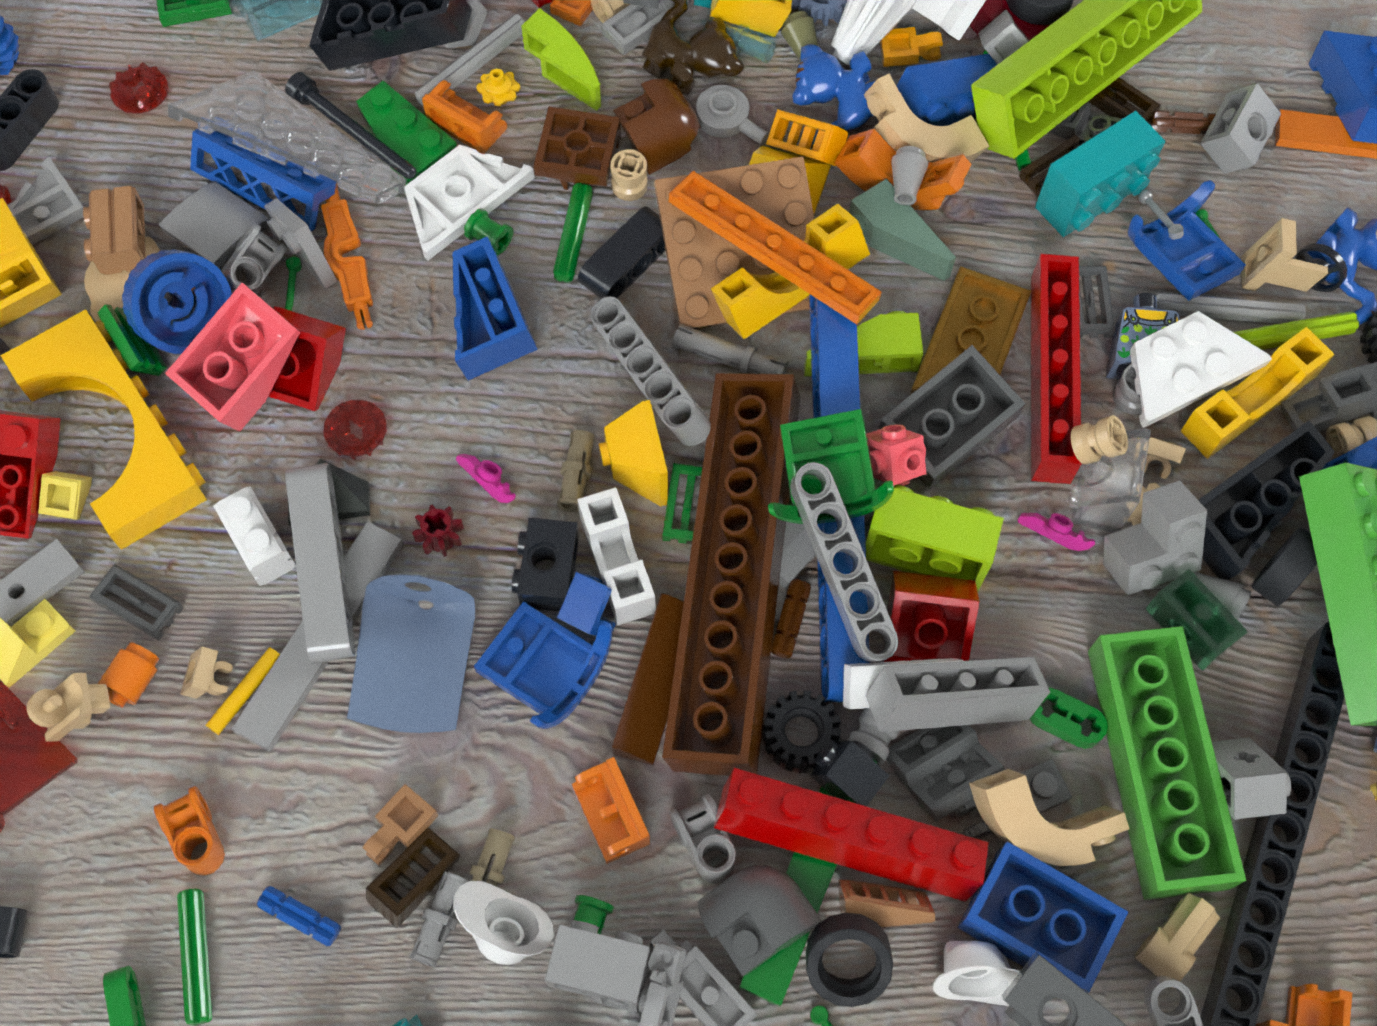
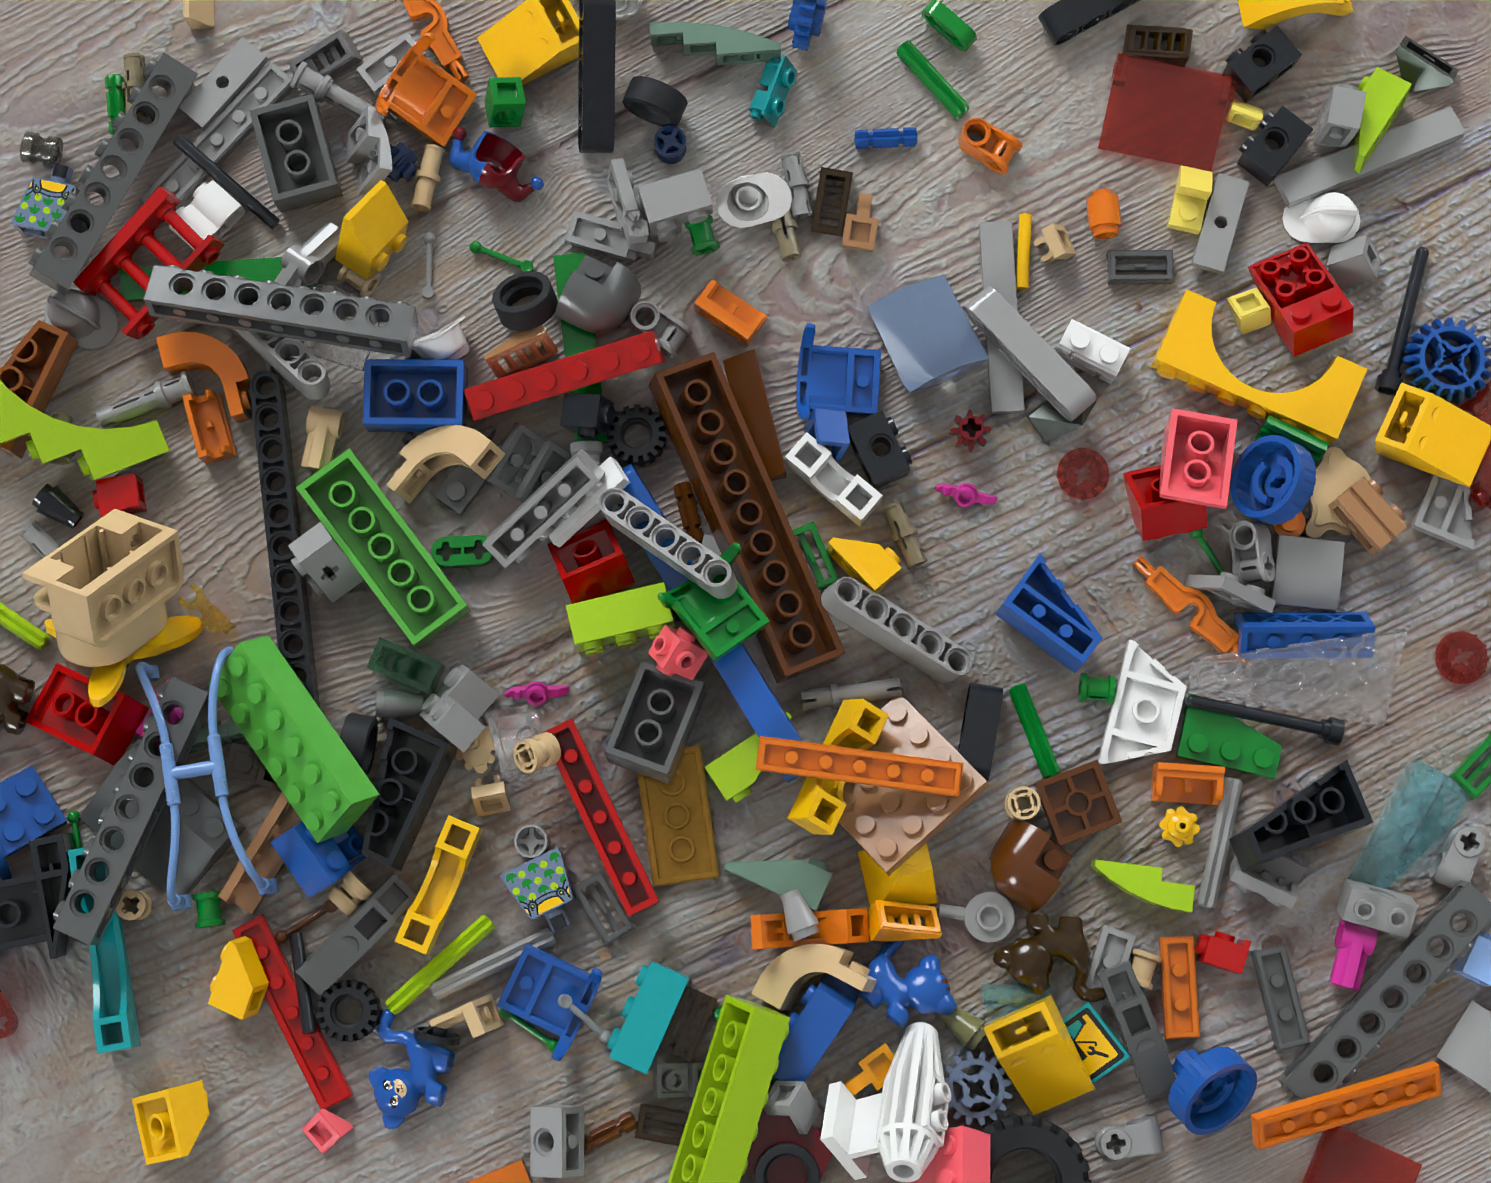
camera: 150 degrees right, 15 degrees up
(67, 706) = (1121, 165): tan hips -> none
(1189, 364) = (501, 870): white wing -> none

